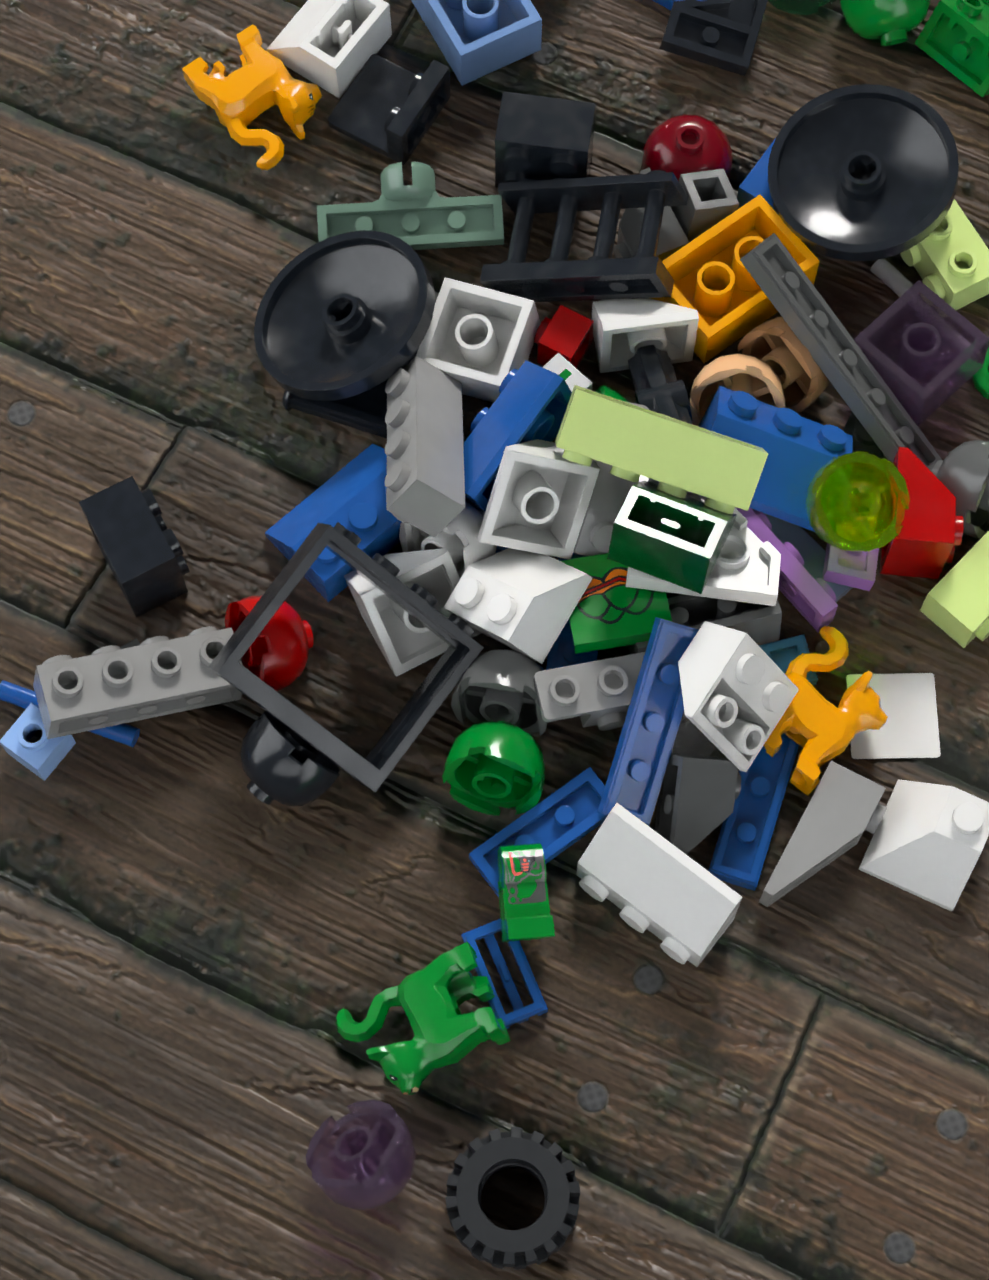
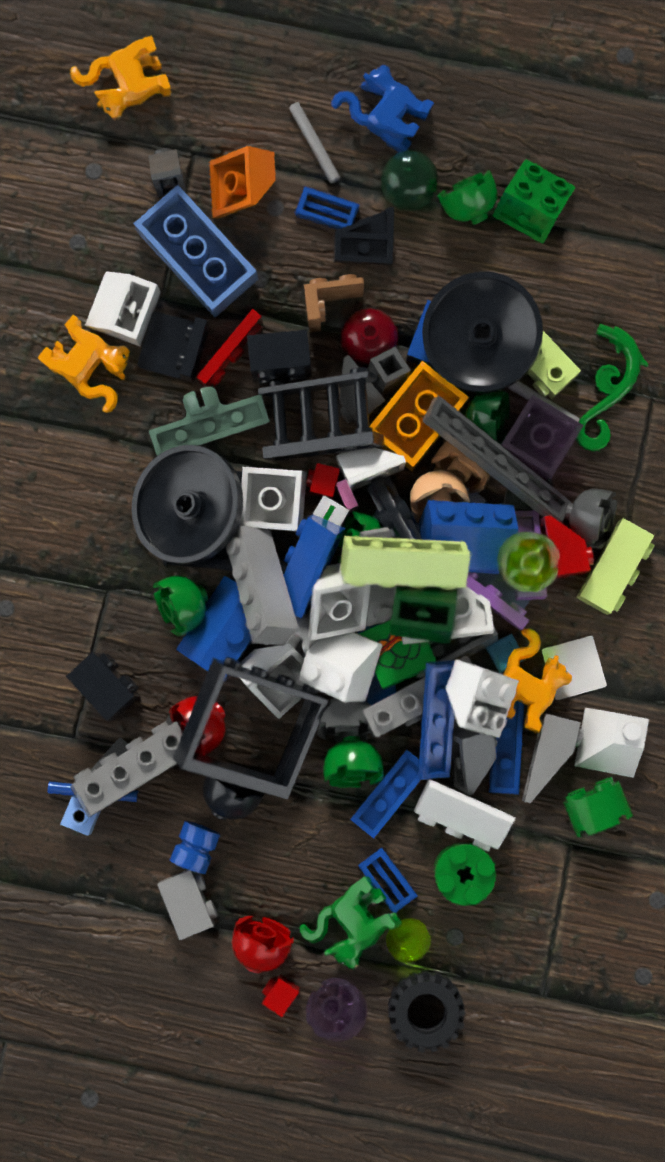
camera: 10 degrees left, 15 degrees up
(164, 921) = (187, 903): none -> light grey brick
(204, 832) = (195, 846): none -> blue wheel
(264, 1018) = (261, 945): none -> red cylinder
(273, 1109) = (279, 994): none -> red plate
(292, 458) = (181, 603): none -> green cylinder
(466, 131) = (230, 350): none -> red plate
(513, 1074) = (408, 941): none -> clear neon green plate
(523, 893) = (389, 840): green leg -> none
(593, 363) = (346, 495): none -> bright pink tile
(630, 957) = (472, 889): none -> green brick
(644, 78) = (320, 291): none -> medium nougat bracket
(850, 293) = (489, 413): none -> dark green cylinder
(883, 929) = (597, 808): none -> green brick

